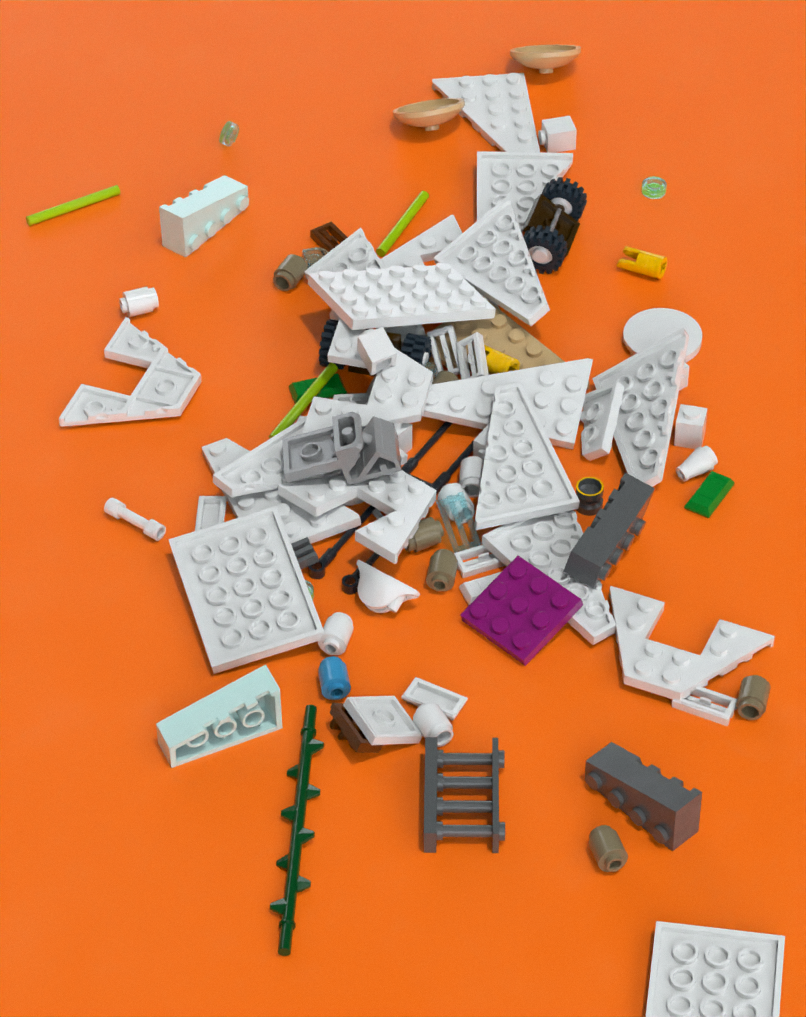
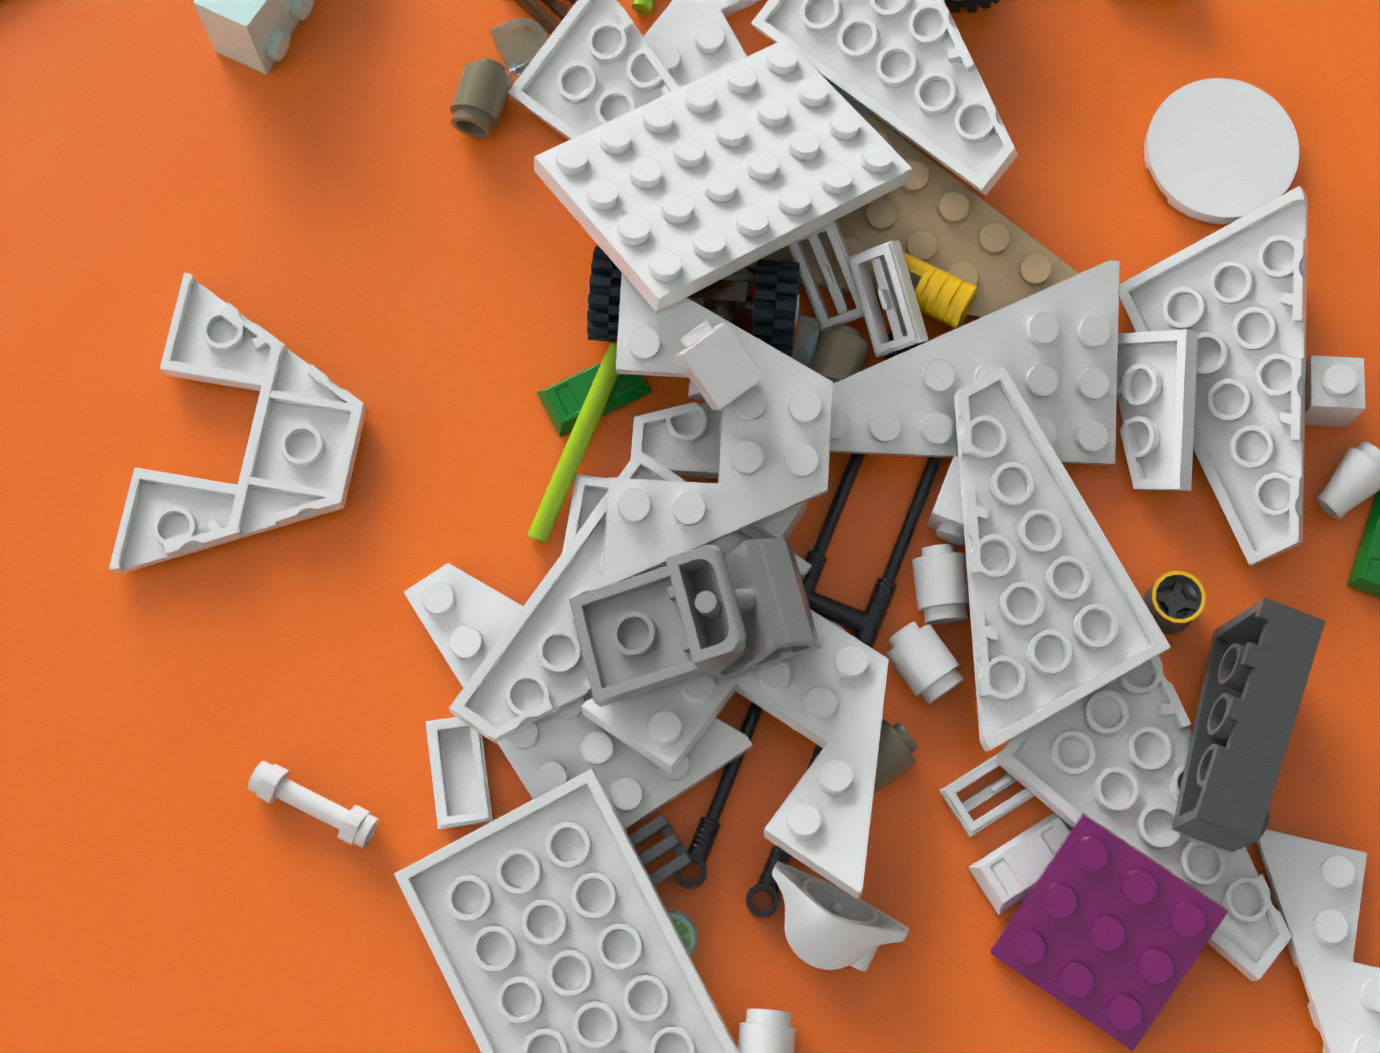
camera: 10 degrees left, 30 degrees up
(139, 301) = (201, 222): white brick -> none
(442, 570) = (934, 847): dark tan brick -> none
(451, 501) = (962, 762): clear light blue tile -> none

